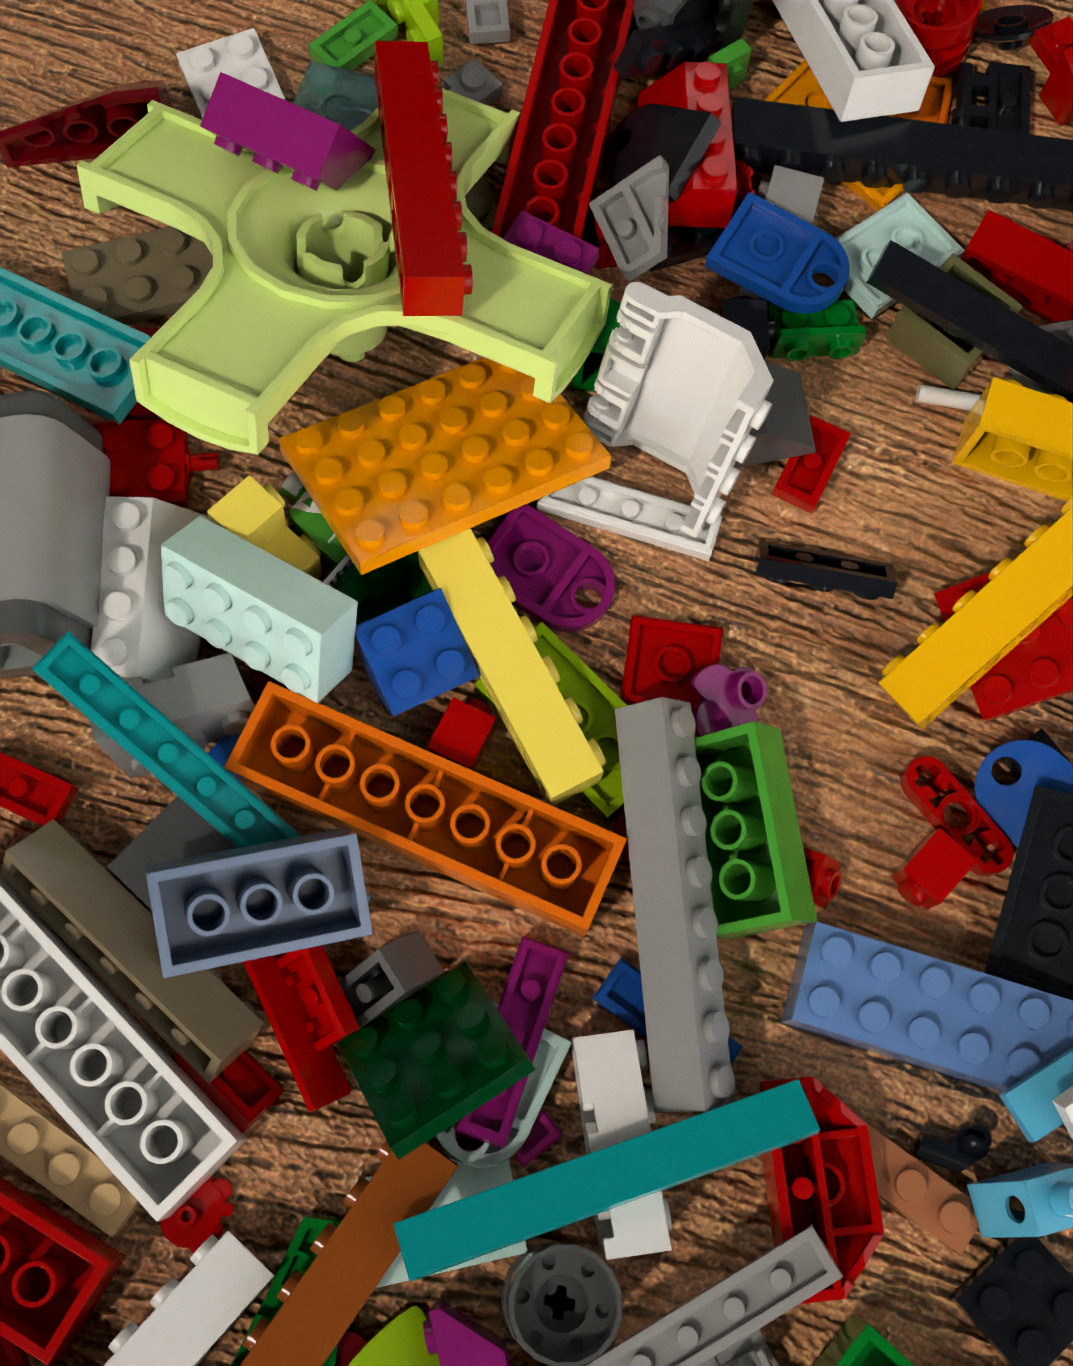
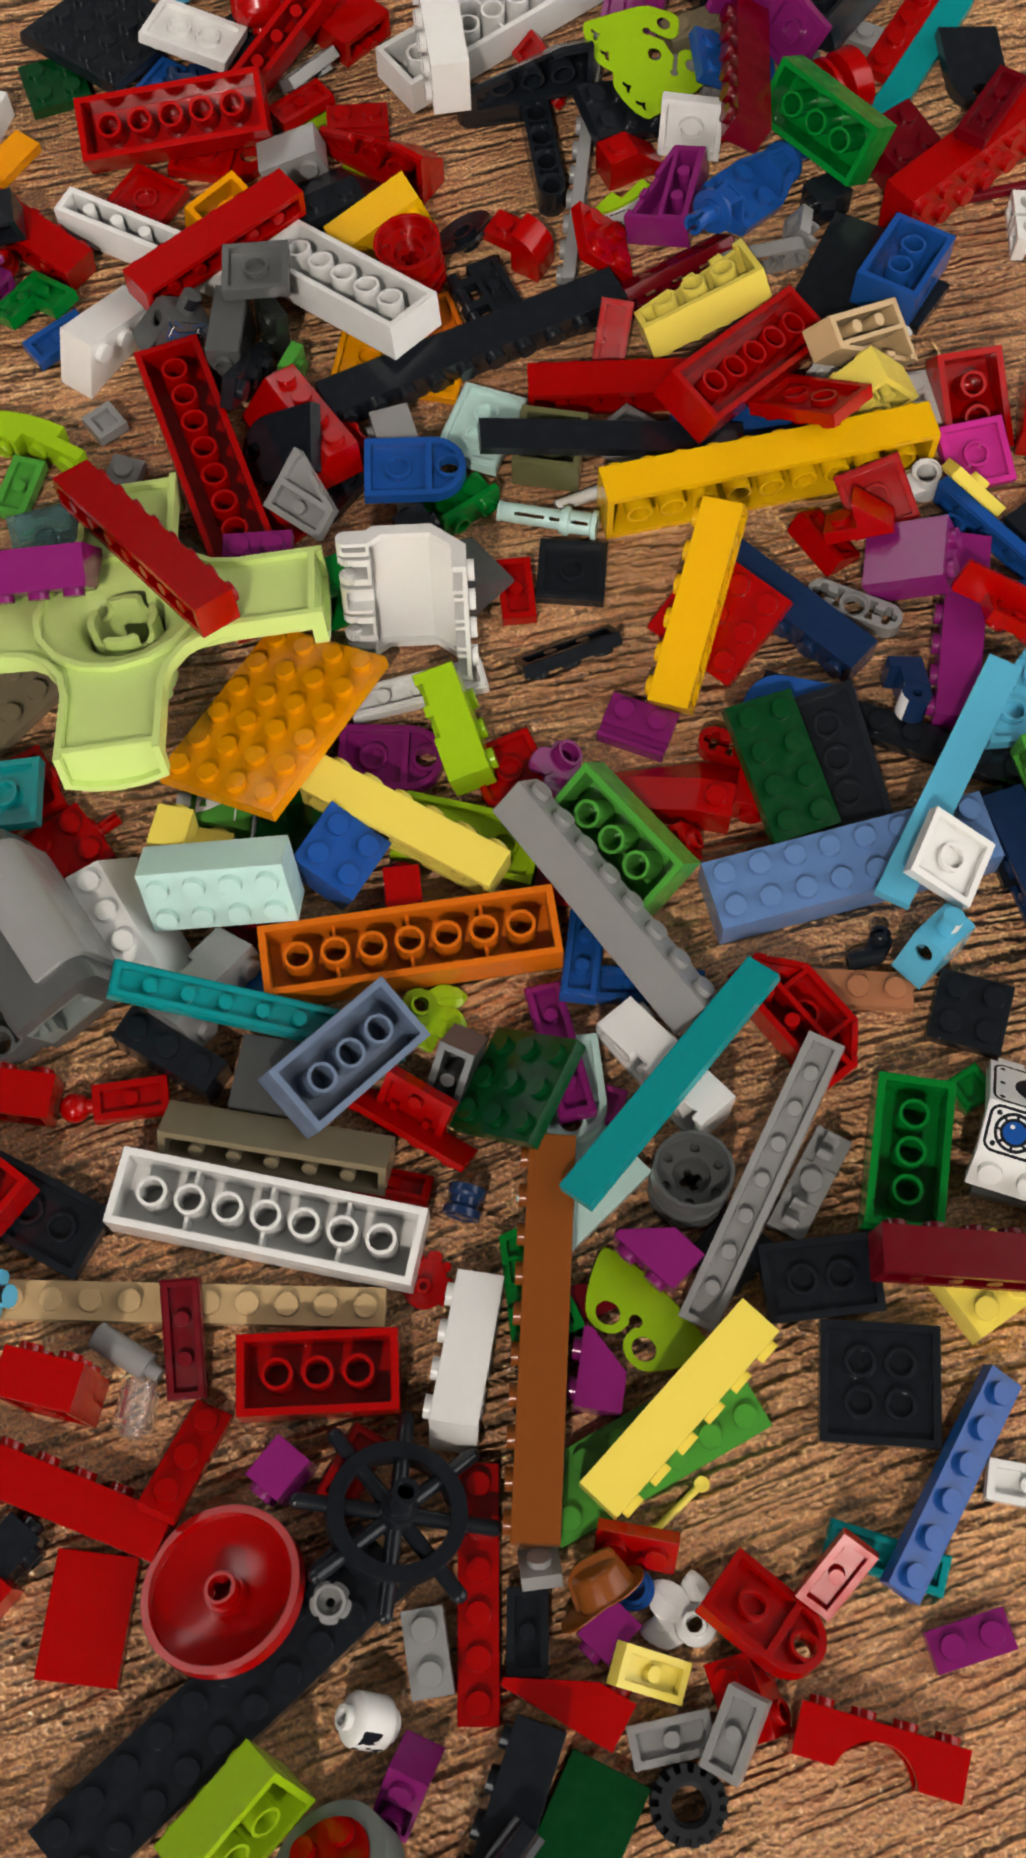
camera: 25 degrees left, 5 degrees down
(96, 782) = (172, 1054): none -> black brick
(293, 1149) = (464, 1202): none -> dark blue wheel
(410, 906) = (440, 1013): none -> lime plate
(601, 953) = (580, 964): none -> blue tile
(640, 586) = (456, 728): none -> lime wedge
(849, 704) = (637, 727): none -> magenta plate
(855, 818) = (687, 793): none -> red wedge
(860, 368) = (508, 513): none -> light aqua pin
(888, 478) = (571, 572): none -> black tile
(985, 864) = (781, 766): none -> dark green plate

